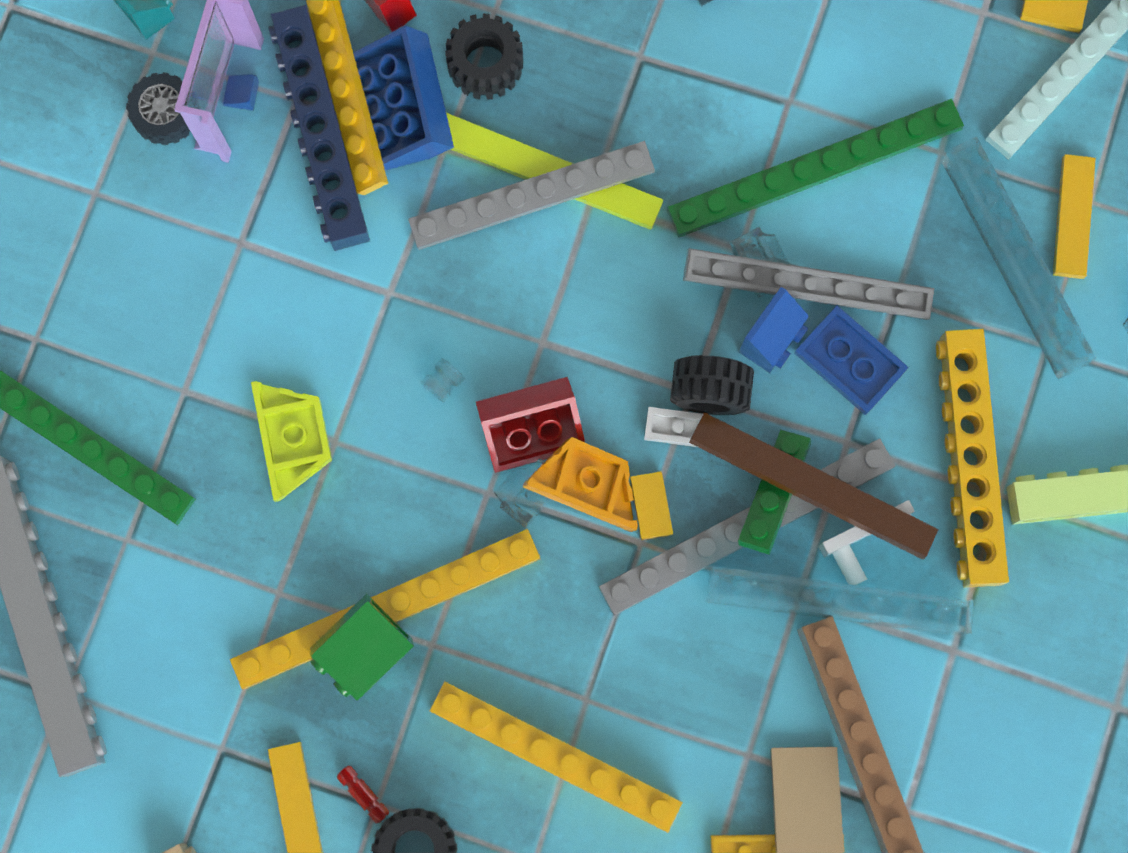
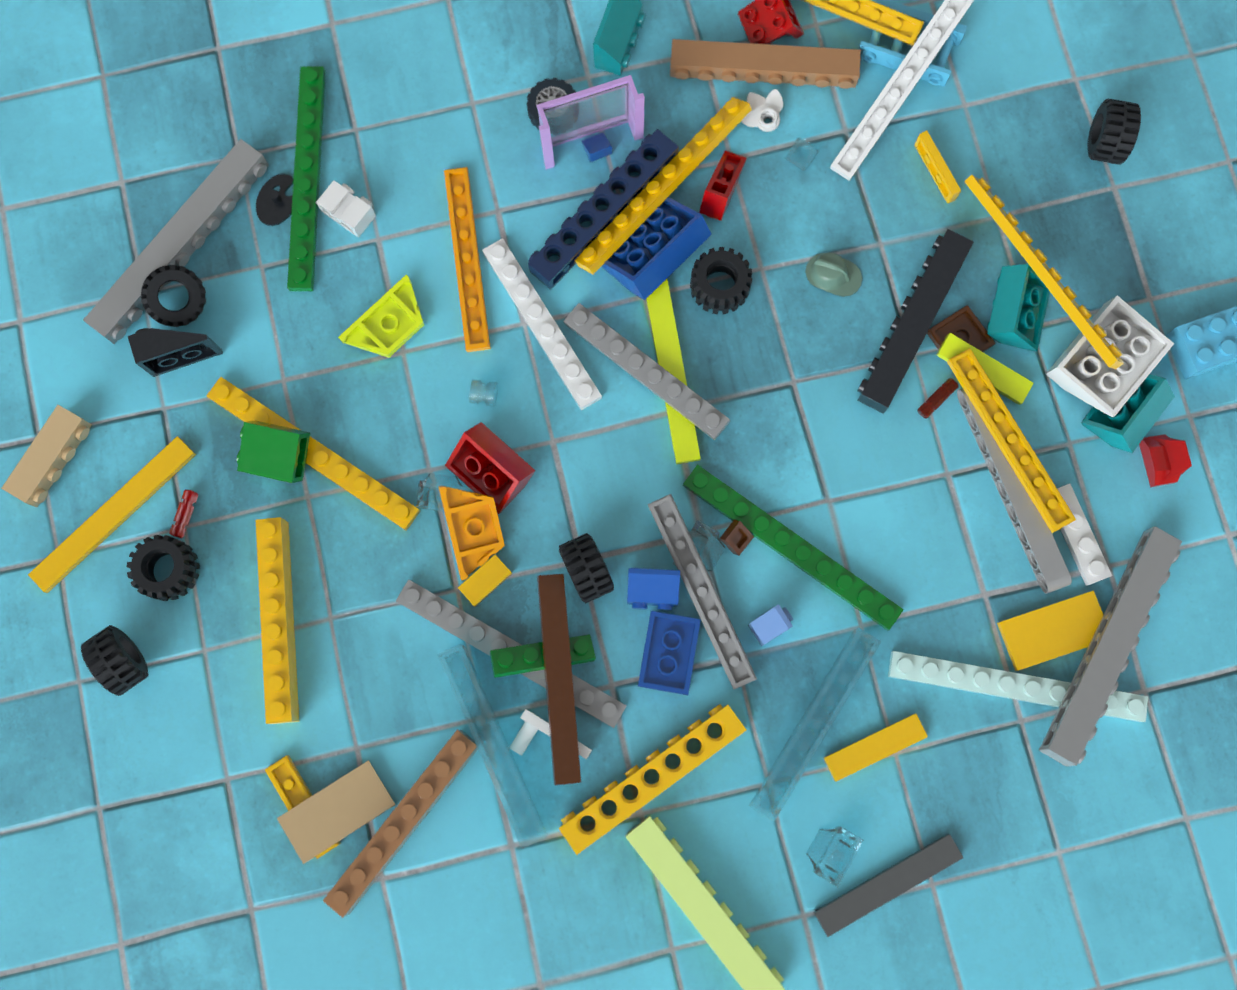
camera: 60 degrees right, 0 degrees up
(66, 482) = (273, 205): none -> black piece
(124, 639) = (179, 274): none -> black tyre
(127, 402) = (346, 209): none -> white brick
(161, 698) = (168, 350): none -> black slope
(275, 307) = (467, 260): none -> light orange tile
(403, 273) = (542, 324): none -> white plate
(671, 426) = (546, 558): white plate -> none
(772, 215) = (736, 537): none -> reddish brown plate
(889, 236) = (771, 624): none -> medium blue slope

